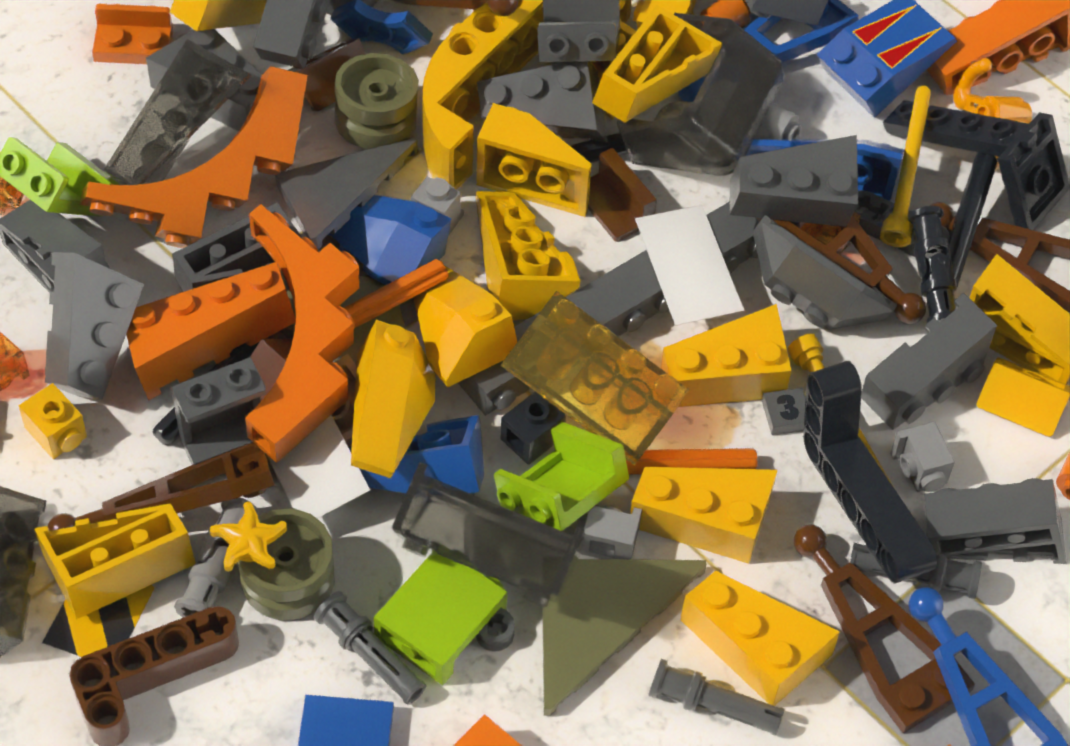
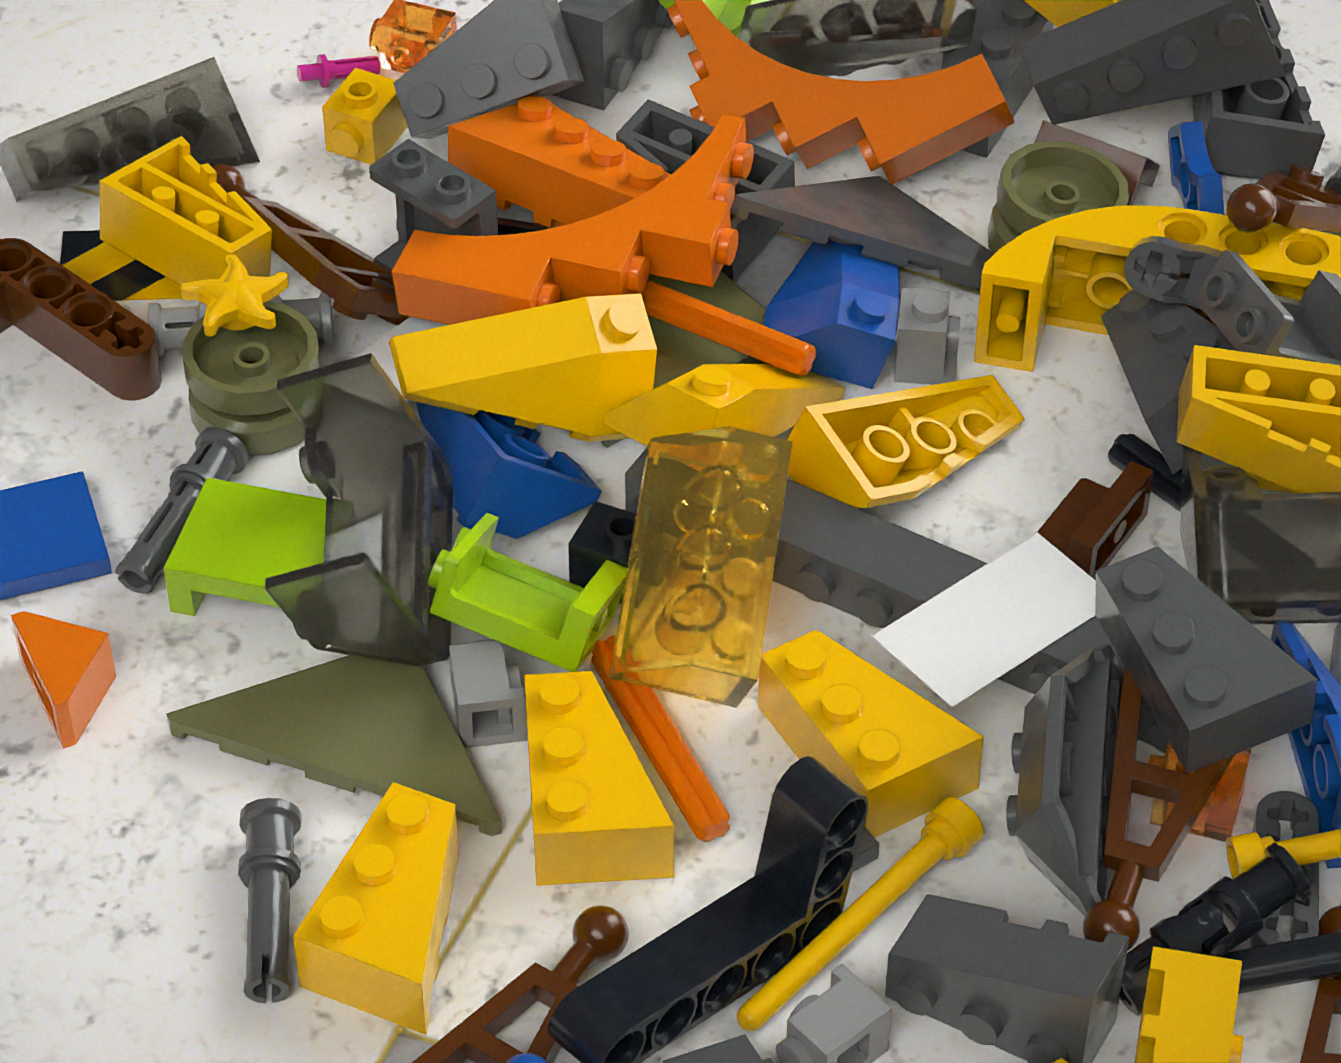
camera: 70 degrees right, 10 degrees down
(501, 641) = (266, 644): dark grey bush -> none
(503, 61) = (1157, 265): none -> dark grey piece
(531, 161) = (1061, 381): yellow slope -> none

